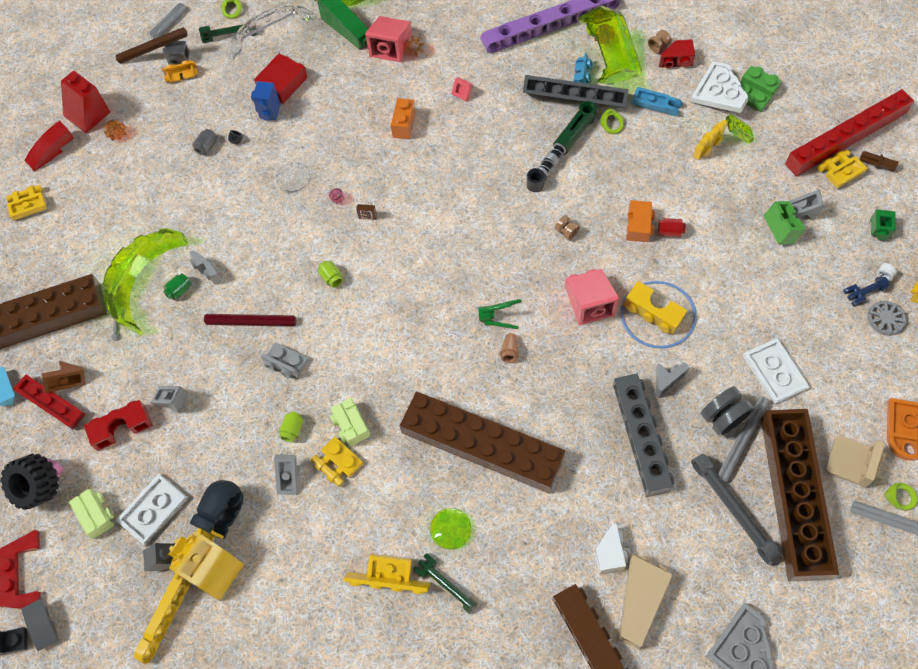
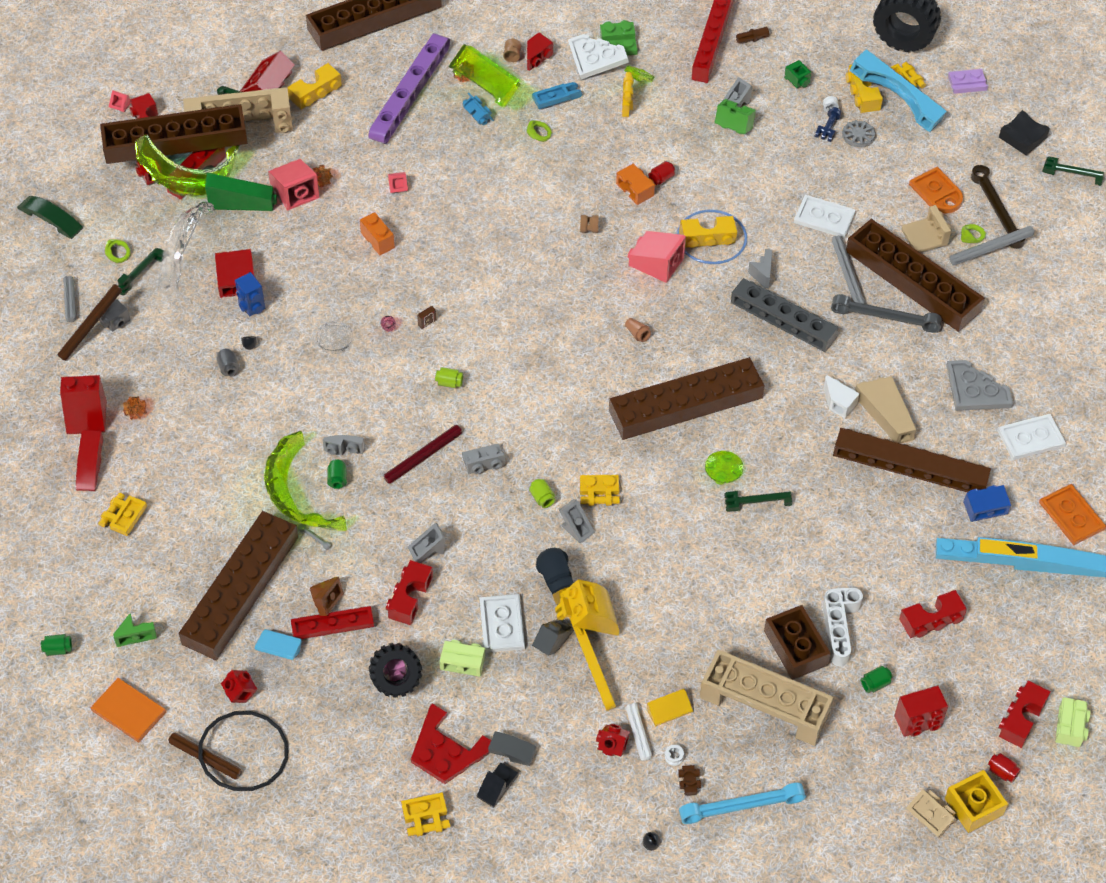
camera: 50 degrees left, 10 degrees down
(172, 71) = (130, 332): light orange hinge -> none
(350, 422) = (581, 457): yellowish green brick -> none
(388, 572) = (713, 520): yellow bracket -> none
(487, 313) = (596, 319): green plant -> none
(562, 145) = (522, 171): piece -> none
(575, 90) = (490, 125): dark grey brick -> none
(727, 411) = (824, 258): dark grey wheel -> none
(845, 172) = (738, 57): yellow plate -> none

